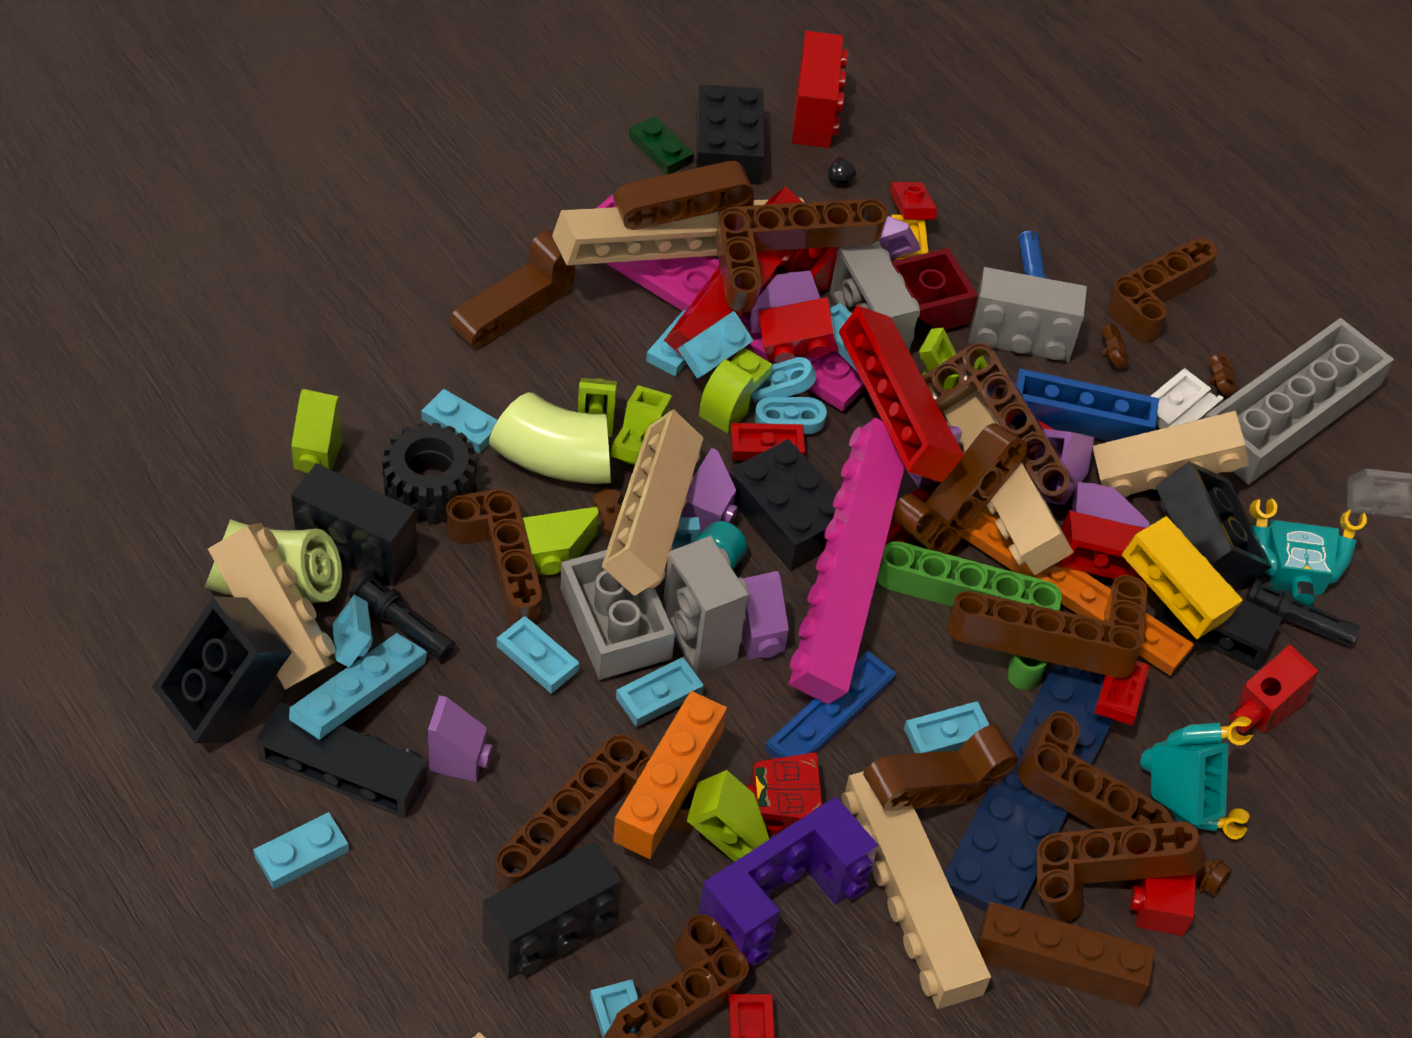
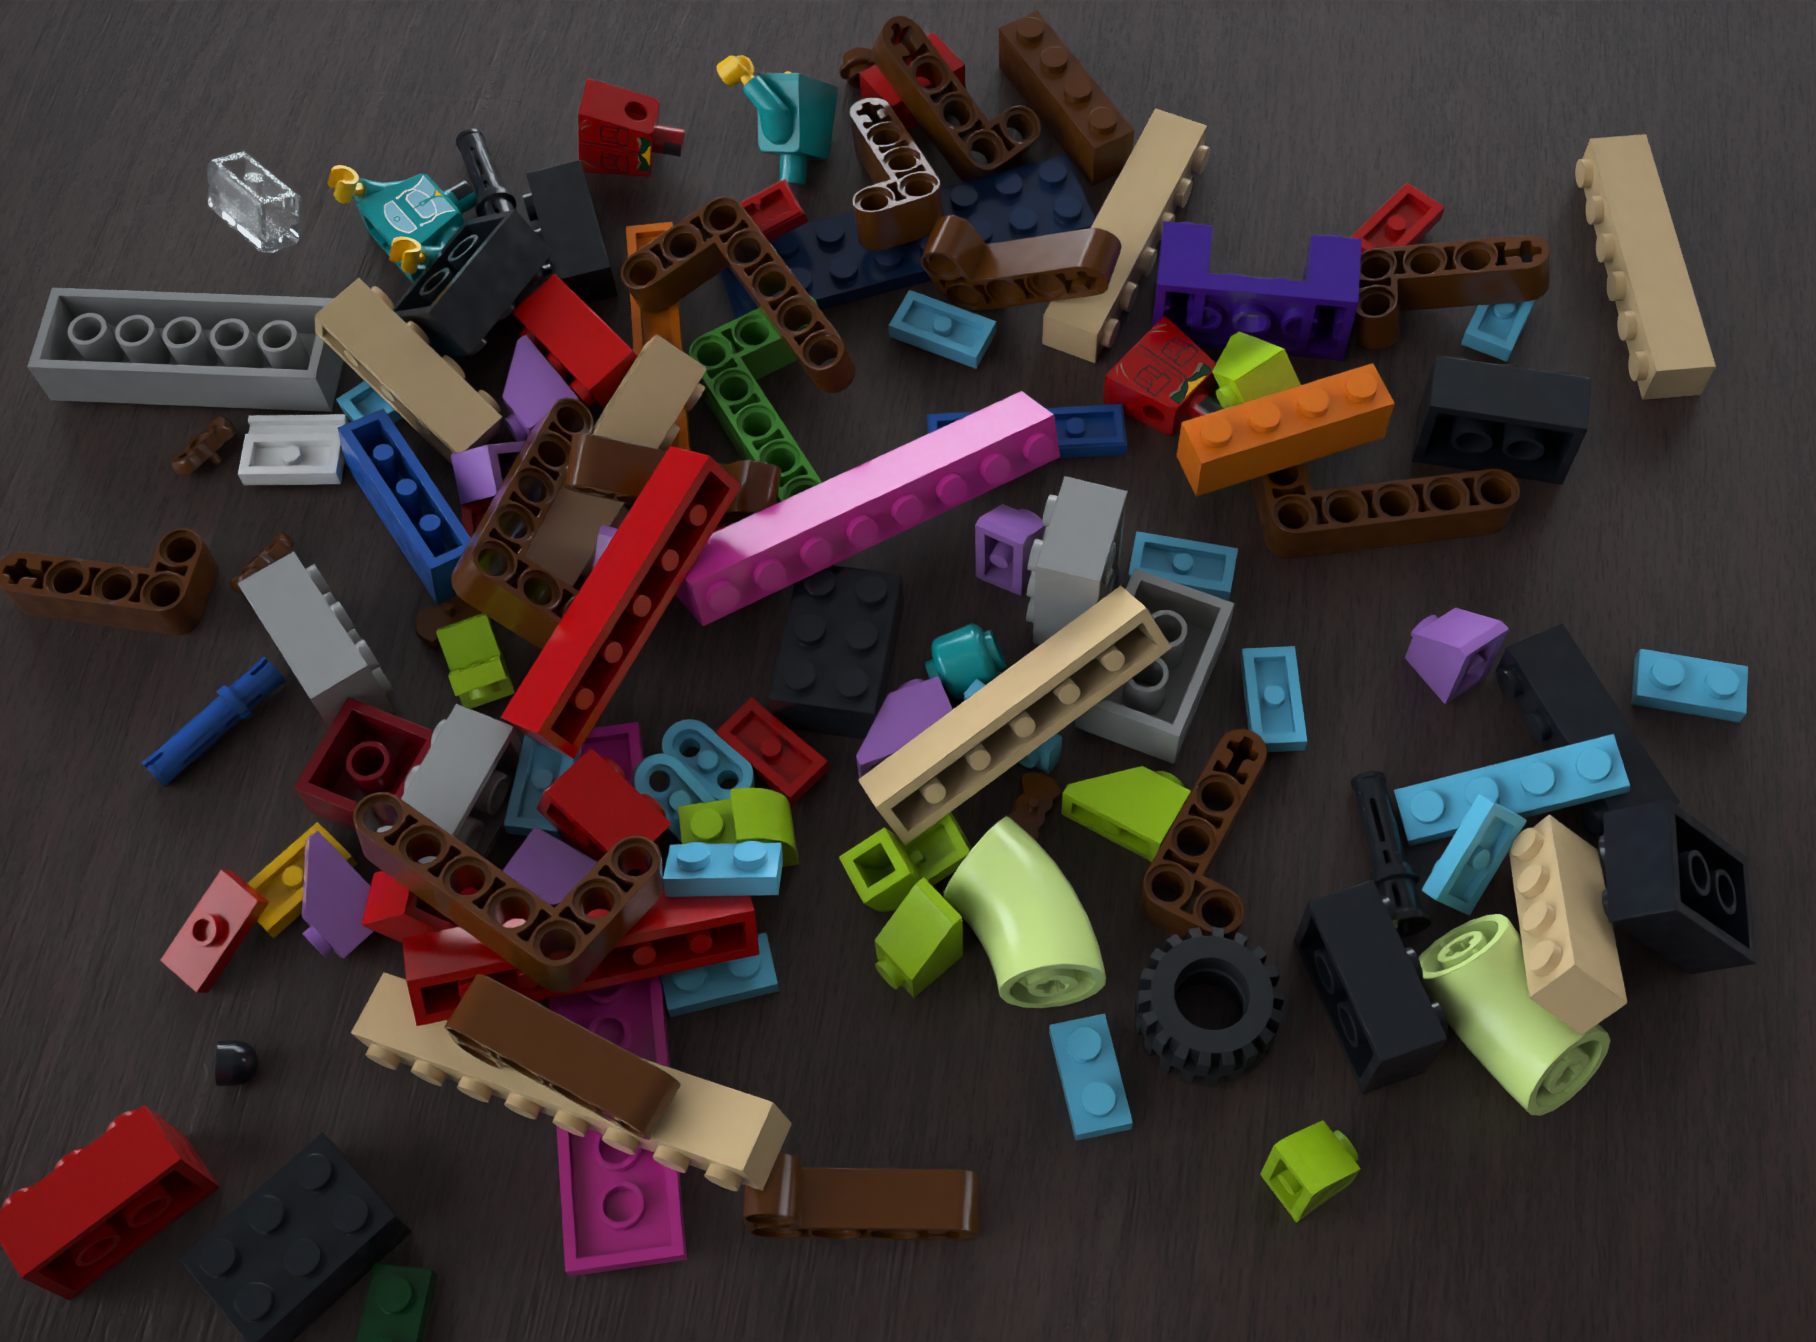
camera: 125 degrees left, 10 degrees up
(1181, 577) = (582, 241): yellow brick -> none

